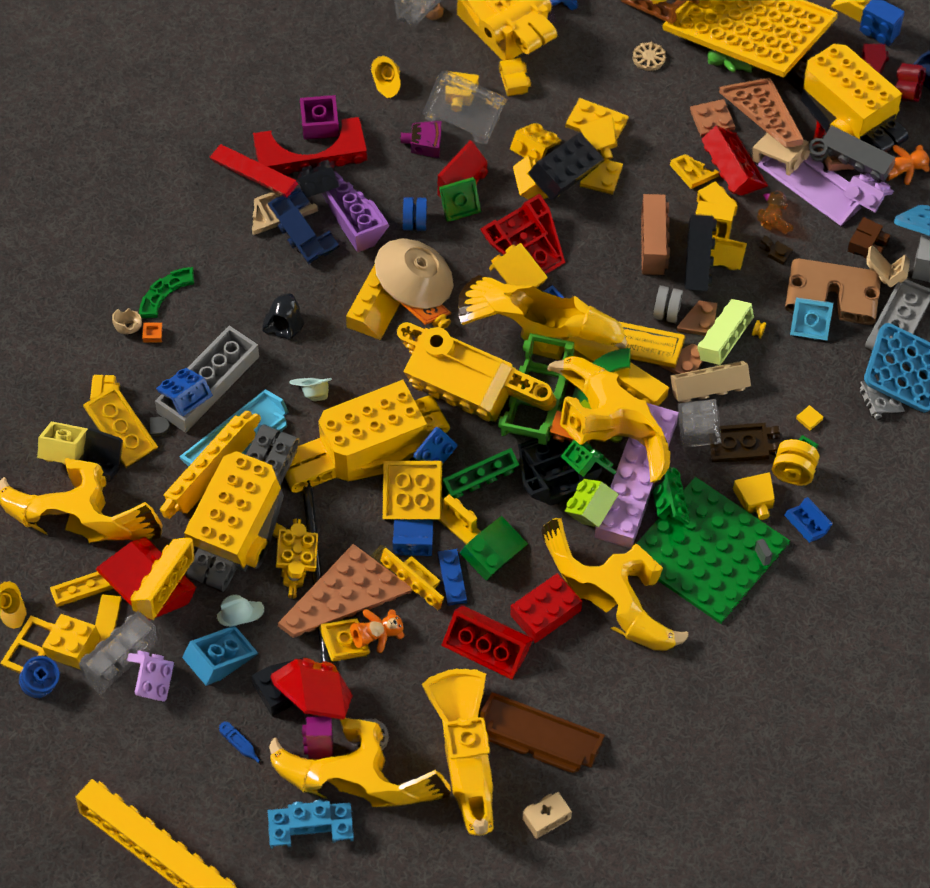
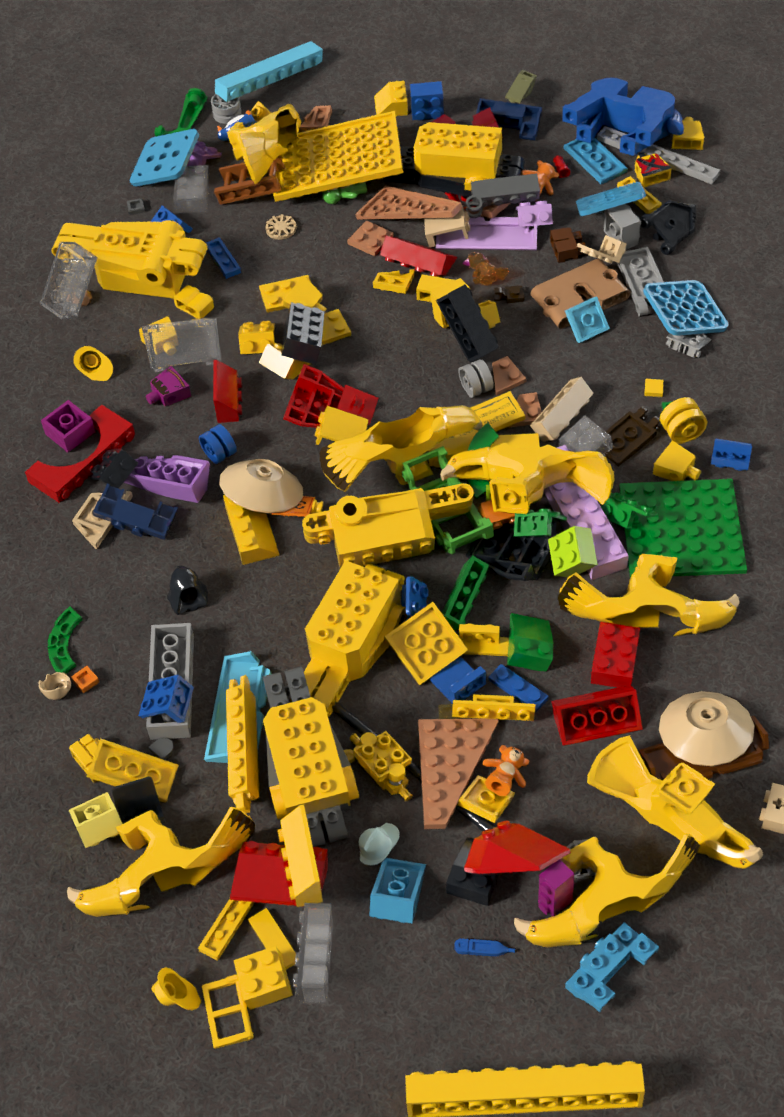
camera: 35 degrees left, 5 degrees down
(29, 678) = (264, 1029): blue wheel -> none
(153, 675) = (364, 946): lavender bracket -> none
(253, 170) = (54, 498): red tile -> none
(313, 388) = (264, 627): light aqua piece -> none
(460, 199) = (243, 410): green tile -> none
(555, 258) = (358, 403): none -> red piece
(555, 728) = (703, 740): none -> tan dish
(574, 52) = (223, 258): none -> blue plate
(655, 234) = (416, 338): nougat brick -> none
(725, 331) = (537, 369): yellowish green brick -> none
(759, 328) = (555, 352): yellow bush -> none
(763, 552) = (729, 497): dark grey tile -> none

